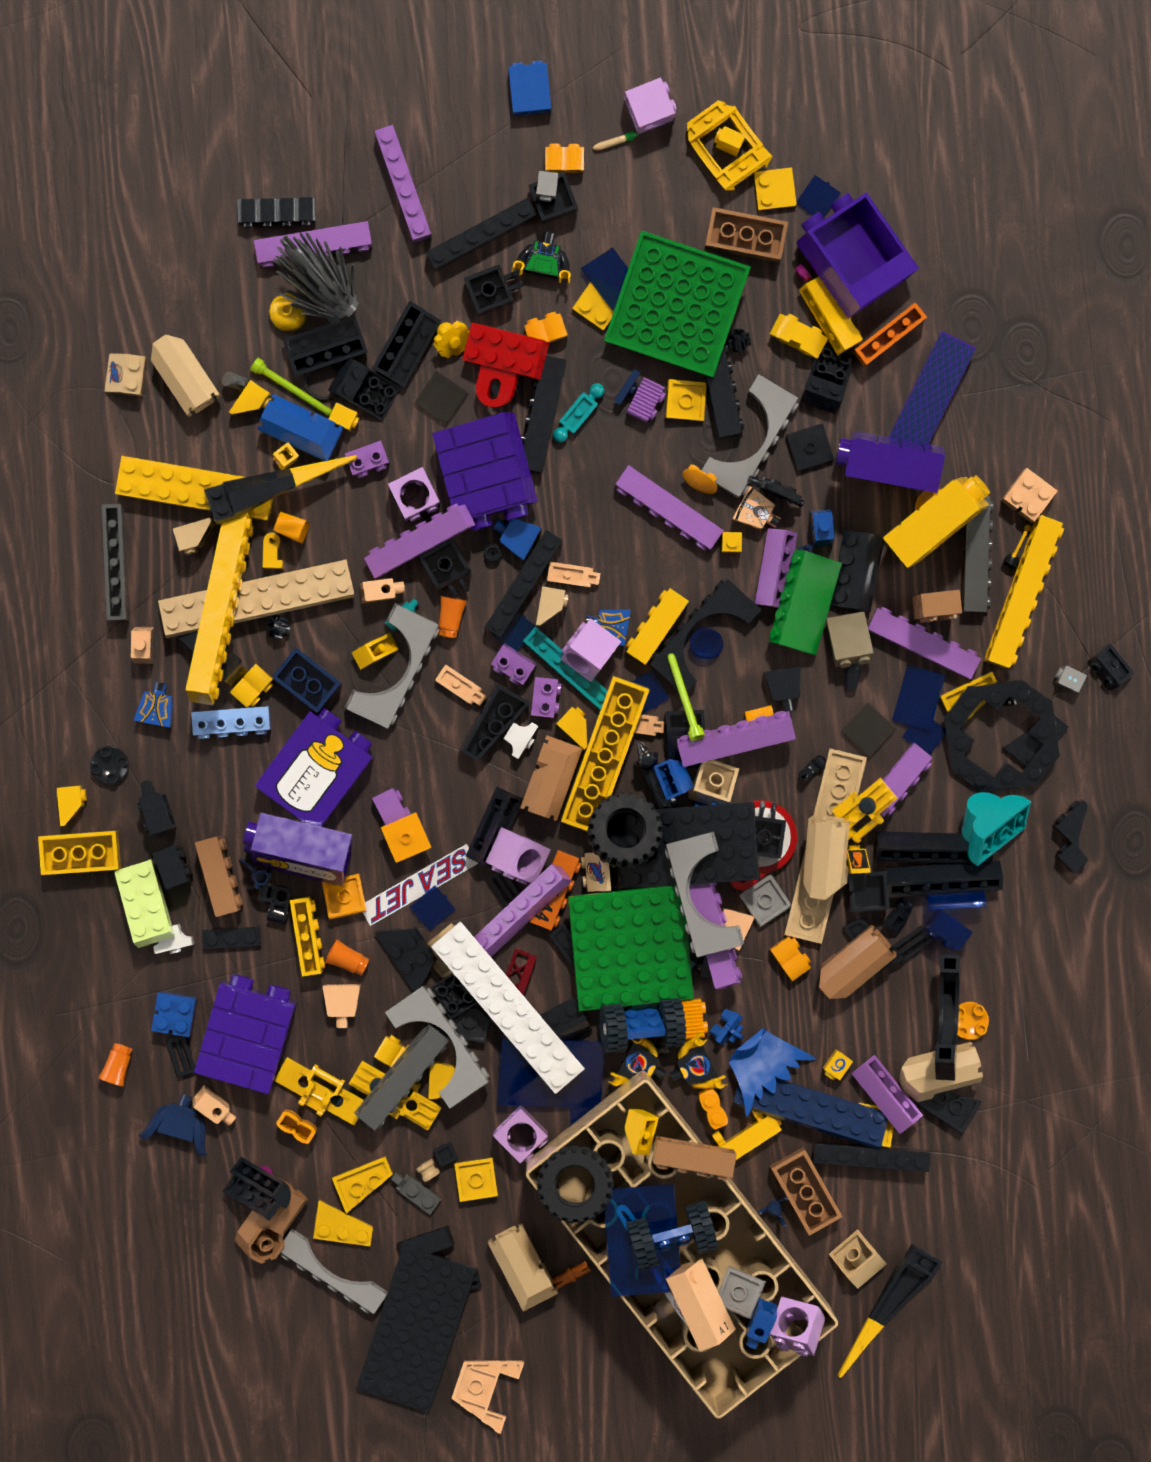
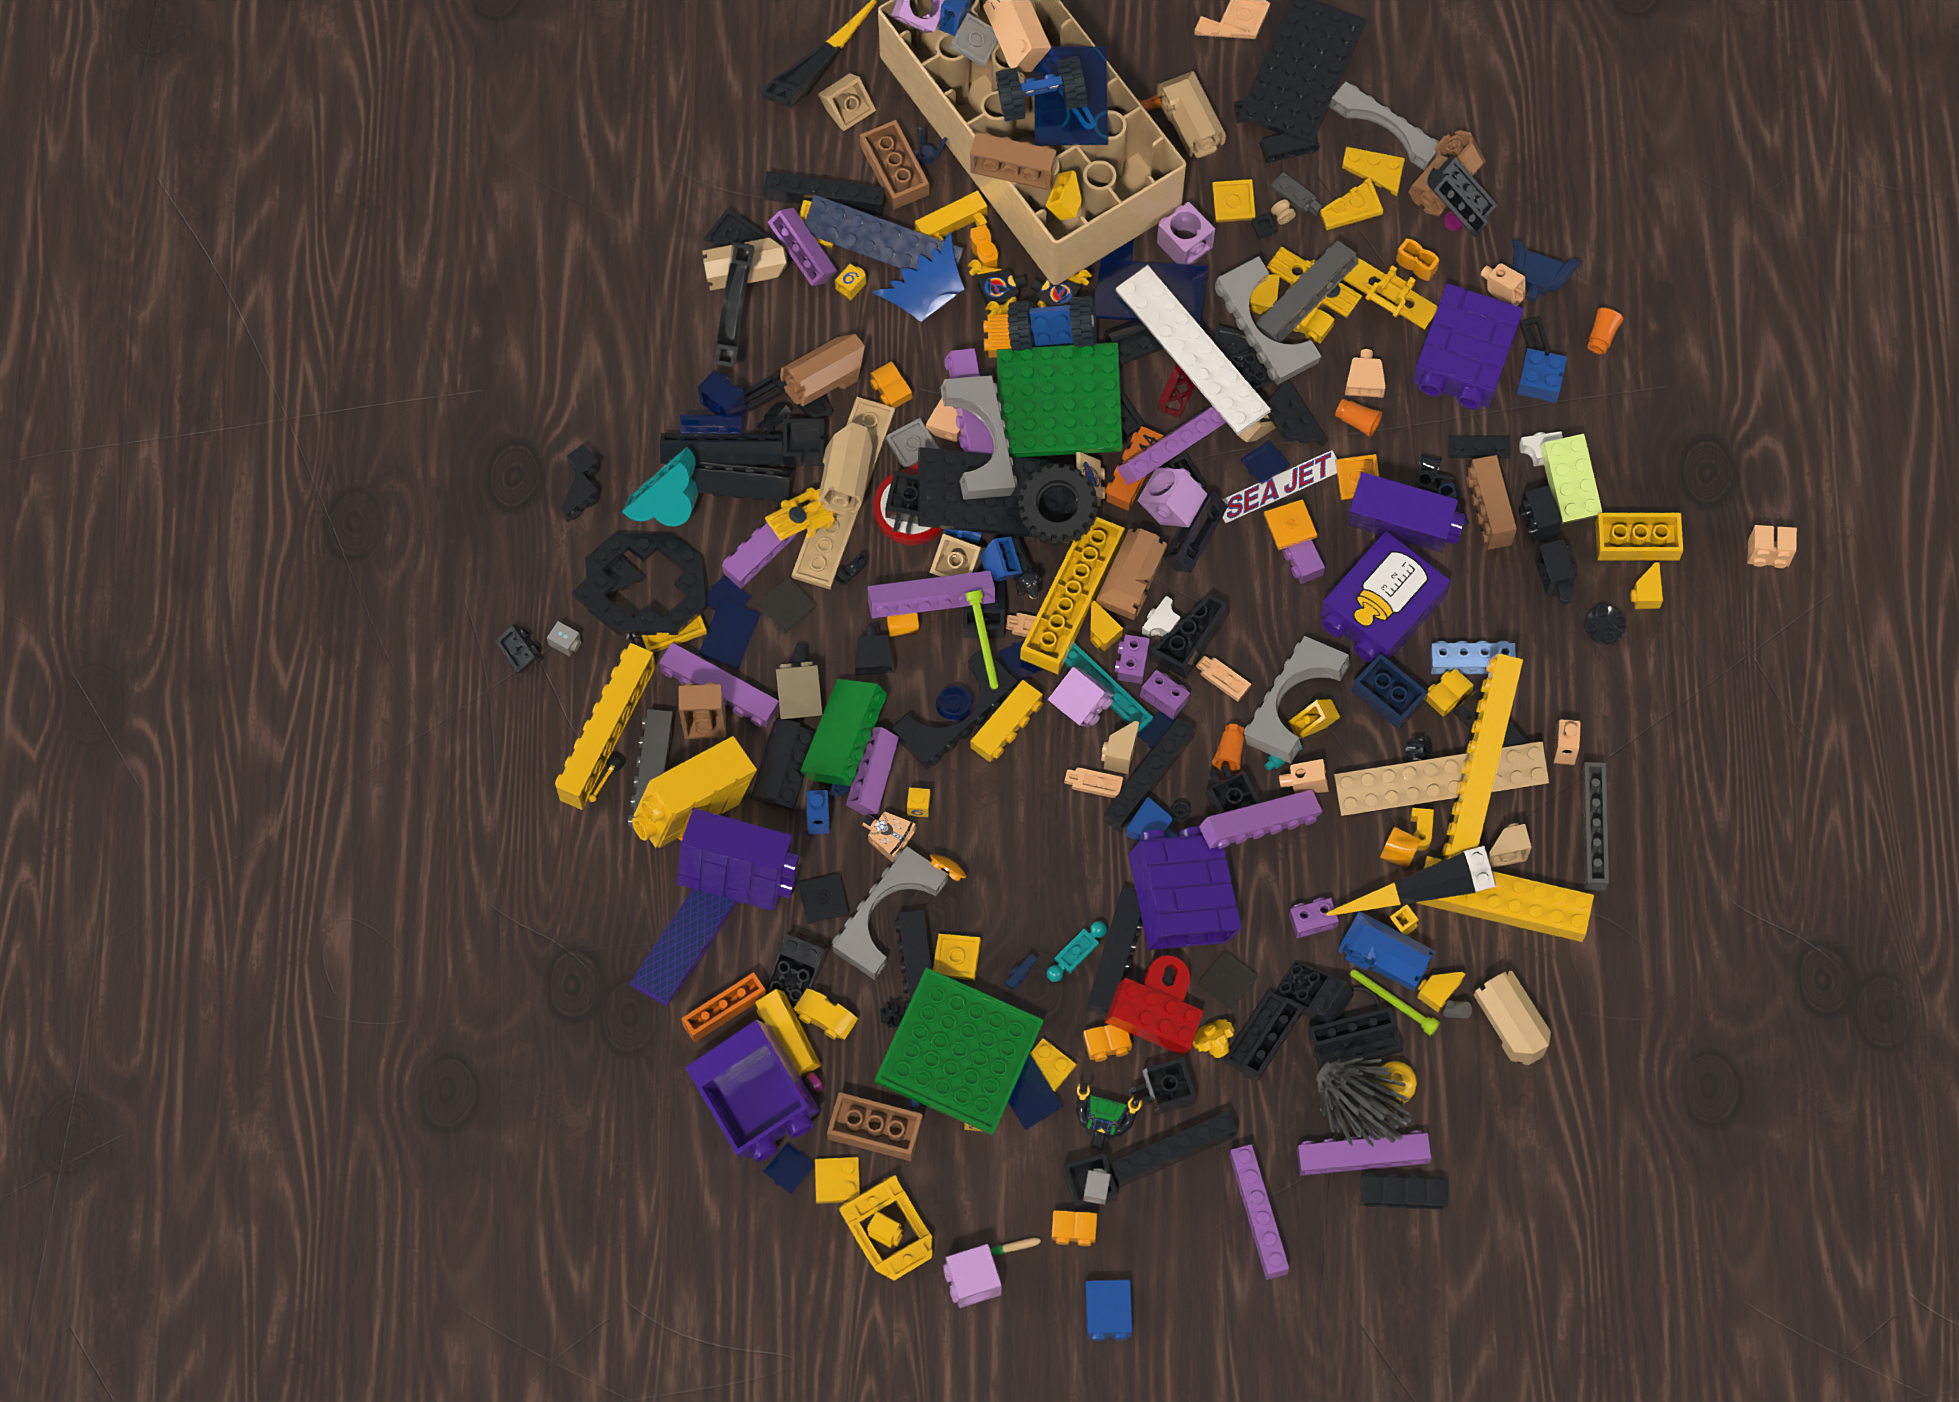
camera: 175 degrees left, 20 degrees down
(126, 374) = (1578, 1026): tan slope -> none
(156, 707) = (1553, 677): torso -> none
(306, 937) = (1400, 439): yellow brick -> none
(344, 416) = (1337, 963): yellow brick -> none
(420, 478) = (1262, 890): lavender brick -> none
(556, 1204) = (1136, 120): black tyre -> none
(614, 622) = (1056, 728): torso -> none
(645, 400) = (1001, 958): medium lavender brick -> none
(669, 508) = (984, 843): medium lavender brick -> none
(723, 1034) = (957, 331): blue hips -> none
(776, 489) = (866, 847): black plate -> none
(857, 860) = (812, 469): slope -> none
(972, 1021) = (705, 314): light orange dish -> none
(1030, 494) = (587, 828): light nougat piece -> none

